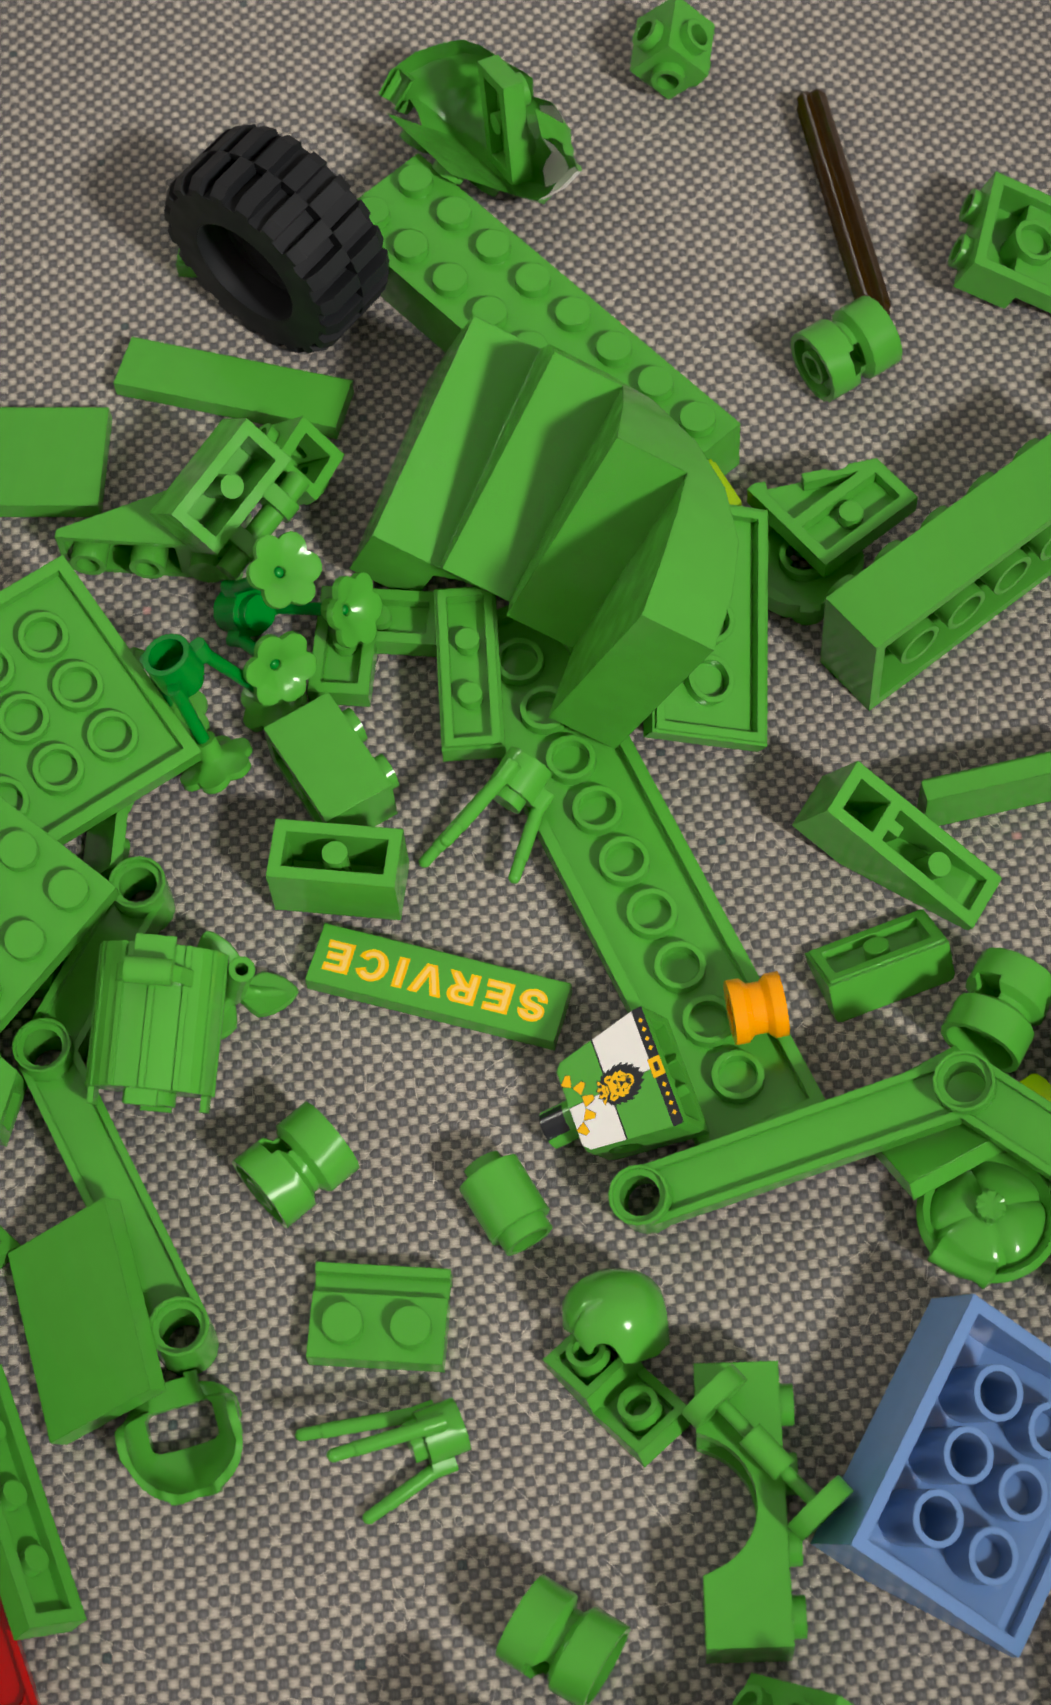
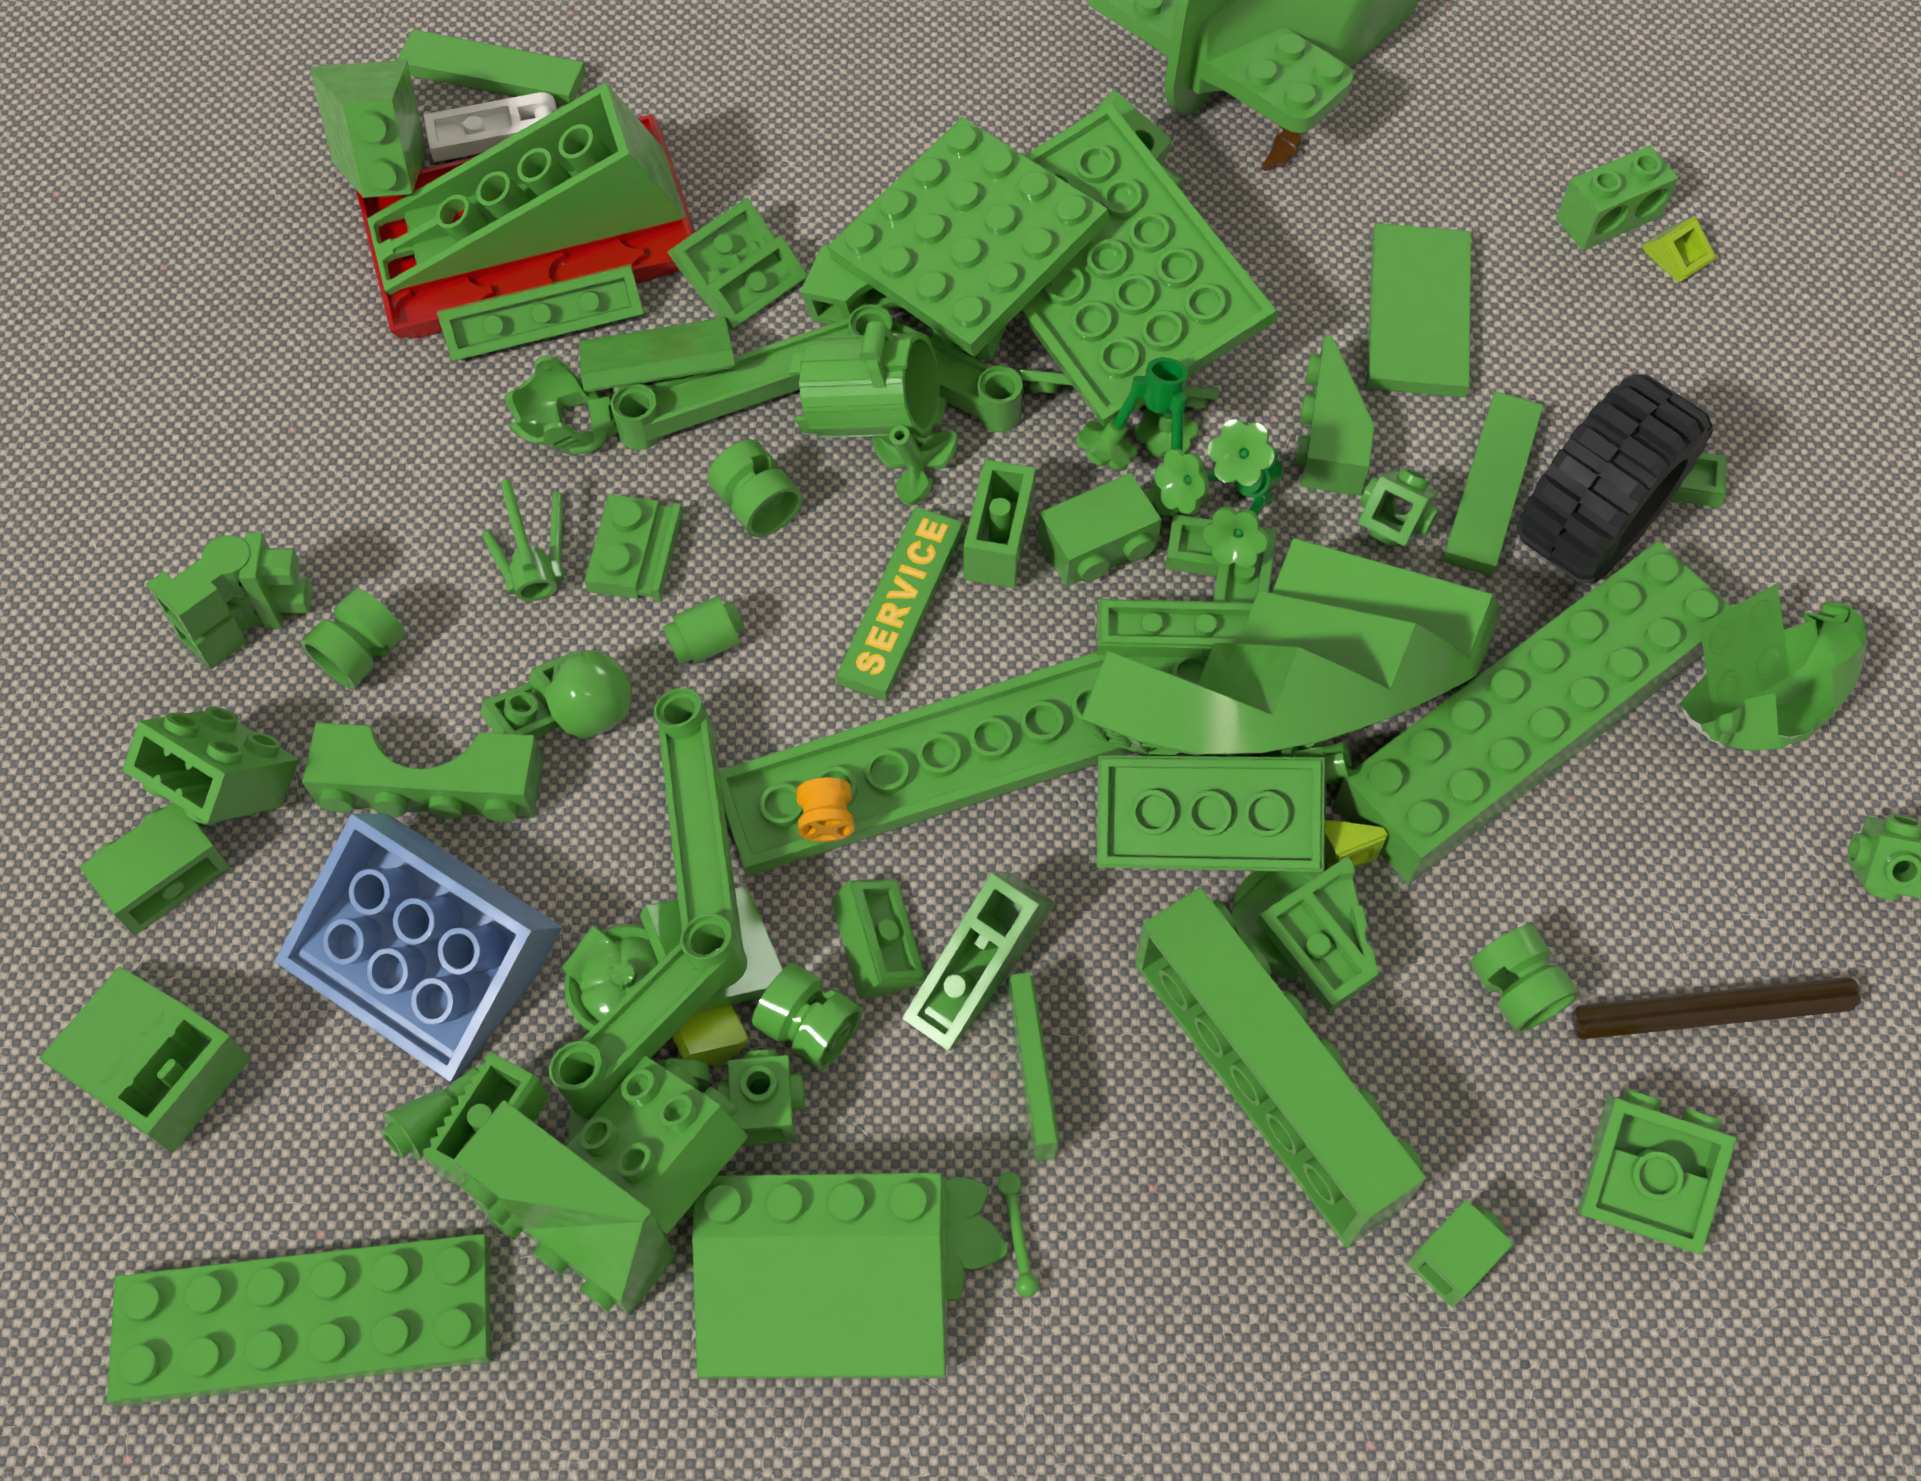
camera: 90 degrees right, 0 degrees up
(221, 489) = (1346, 428): bright green brick -> none
(505, 119) = (1788, 678): bright green plate -> none
(514, 784) = (1058, 647): bright green plant -> none
(625, 1092) = (771, 716): torso -> none
(766, 1451) = (440, 770): bright green wheel -> none

